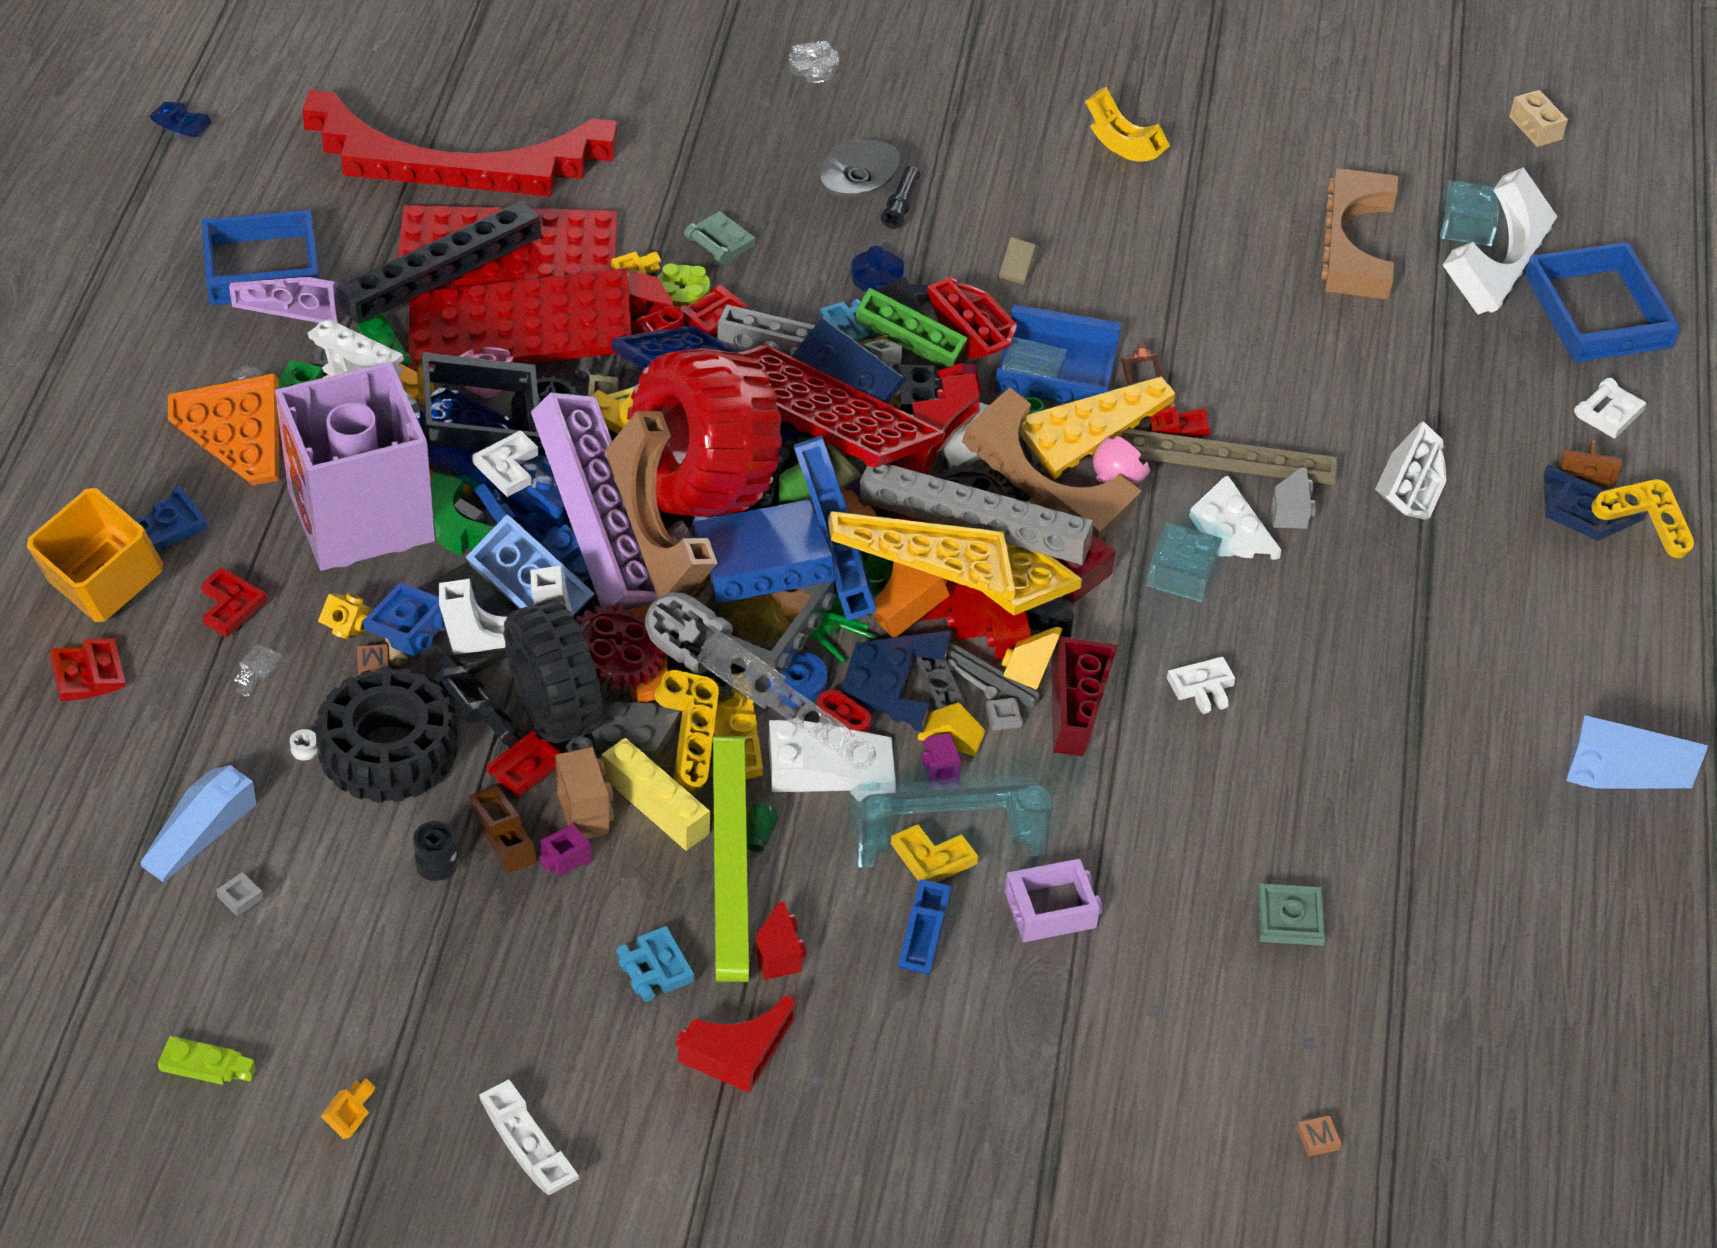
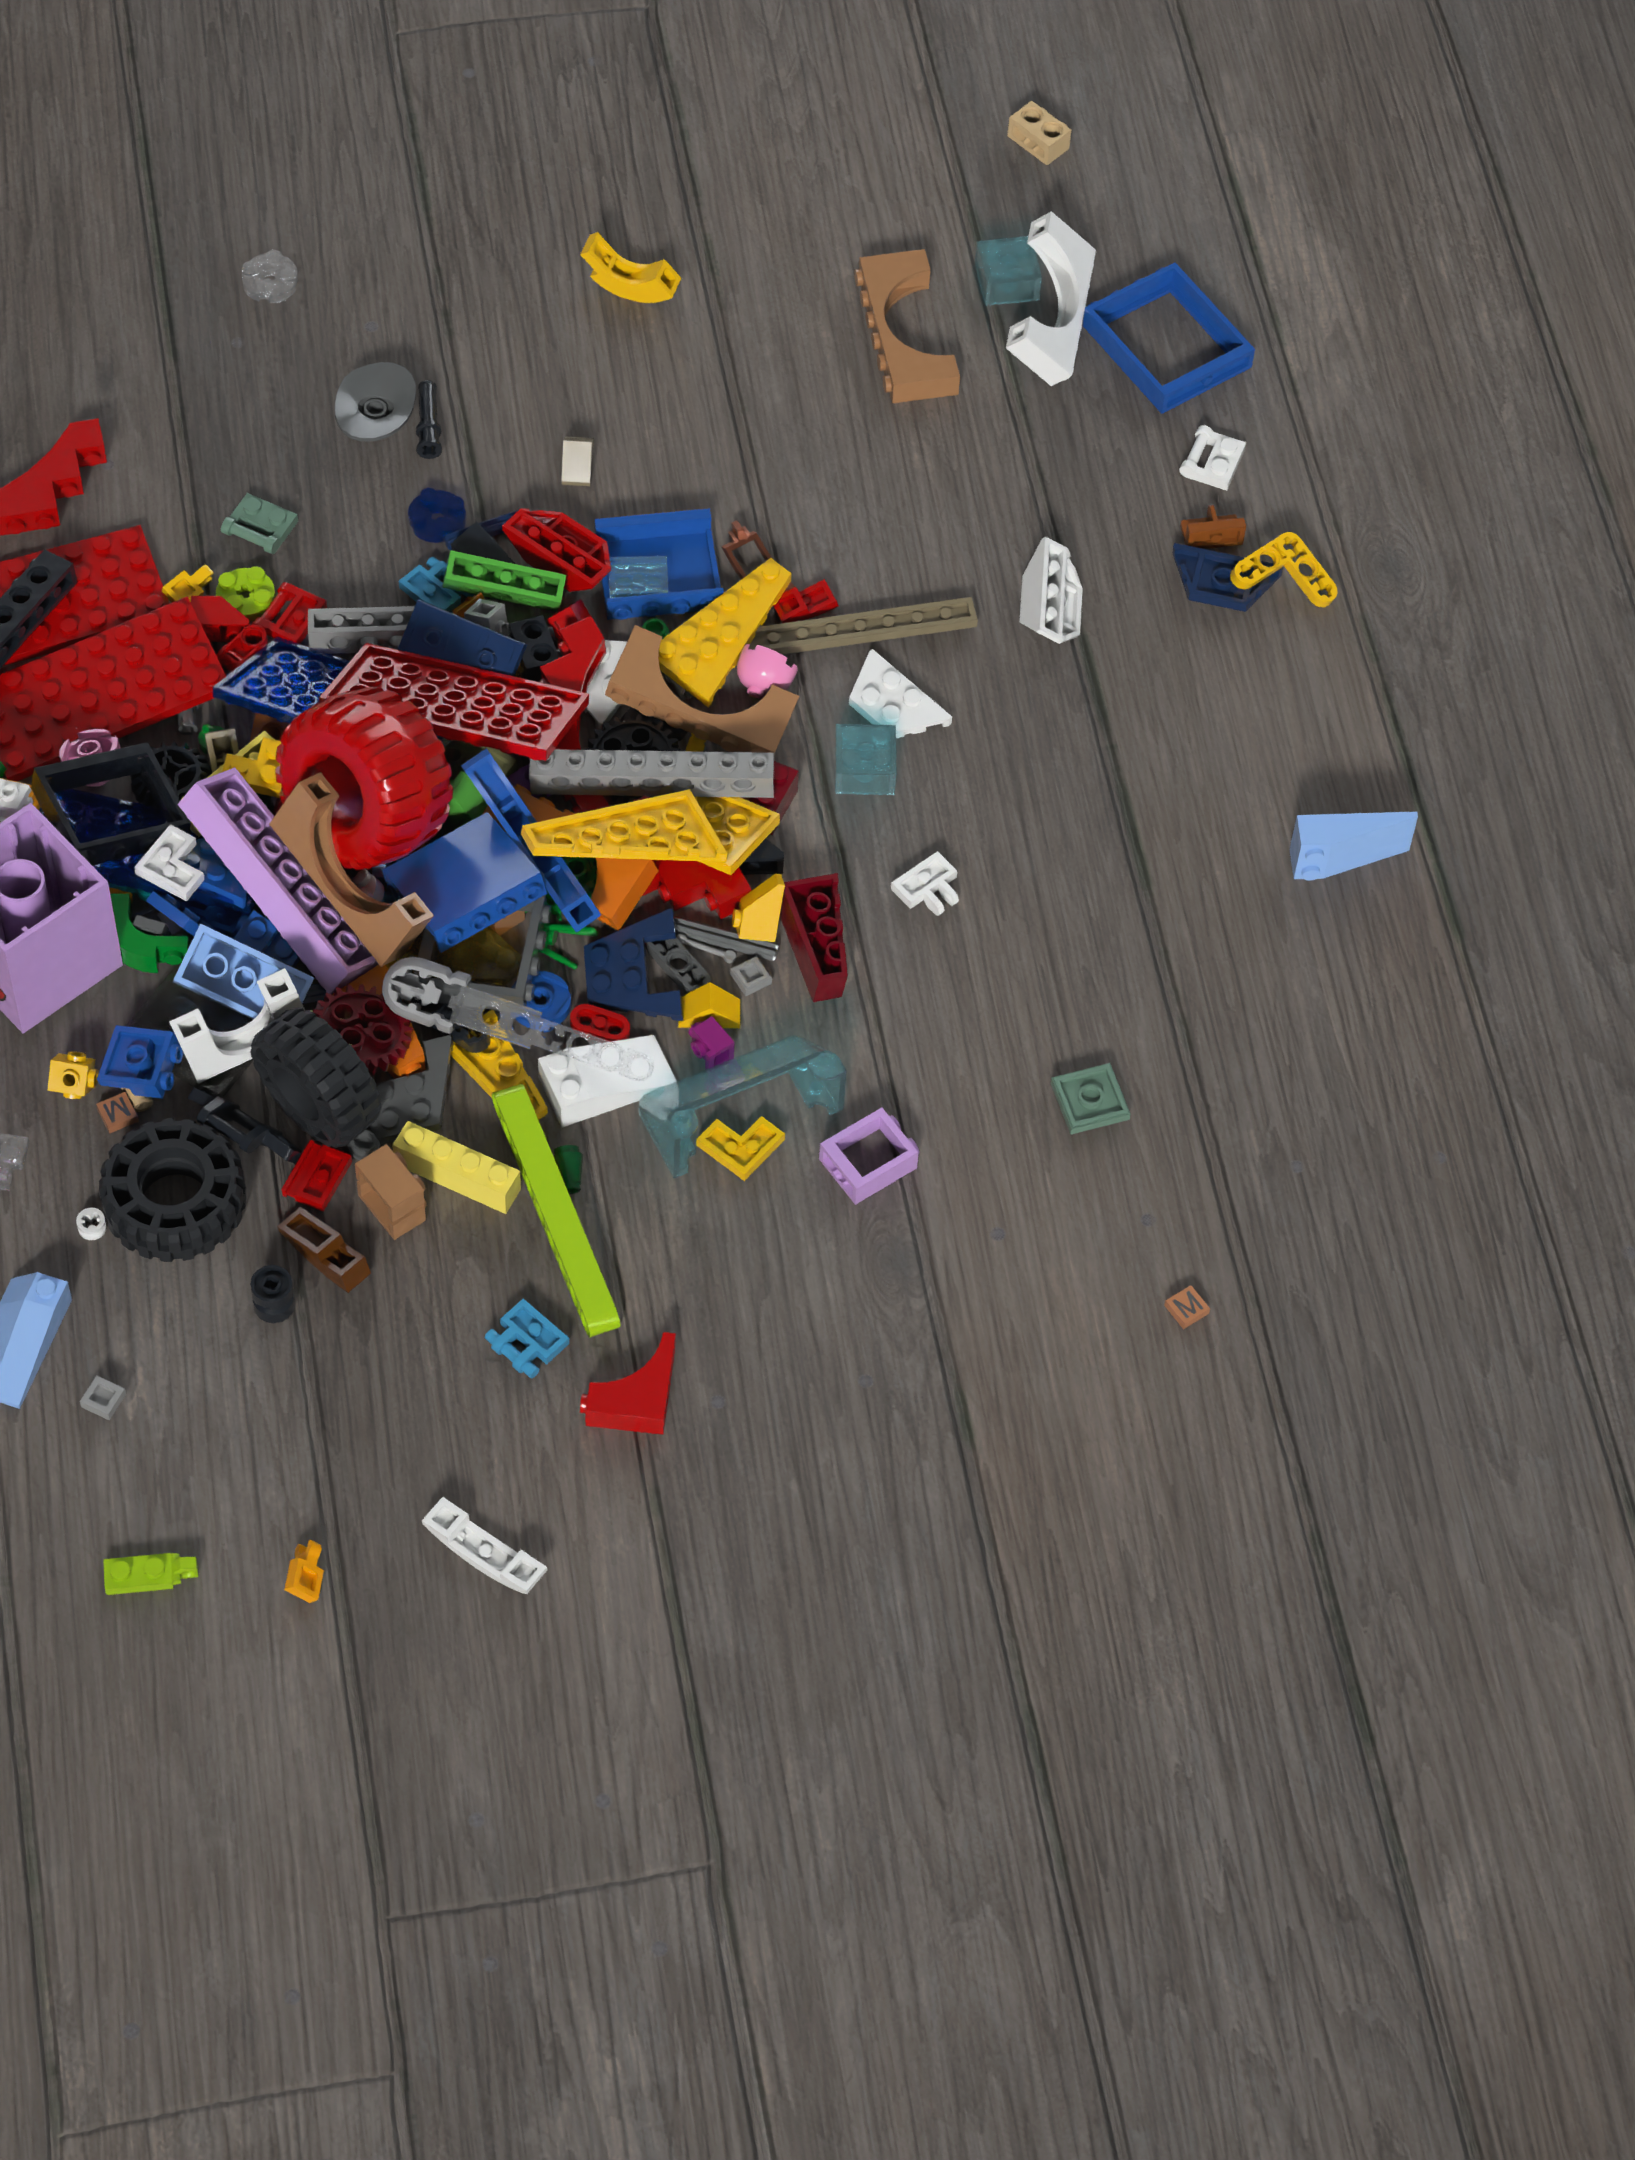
camera: 20 degrees left, 10 degrees up
(565, 850) = (396, 1245): magenta brick -> none
(691, 735) = (478, 1132): yellow beam -> none
(777, 944) = (634, 1283): red slope -> none
(925, 927) = (762, 1221): blue slope -> none
(1292, 502) = (944, 660): light grey slope -> none

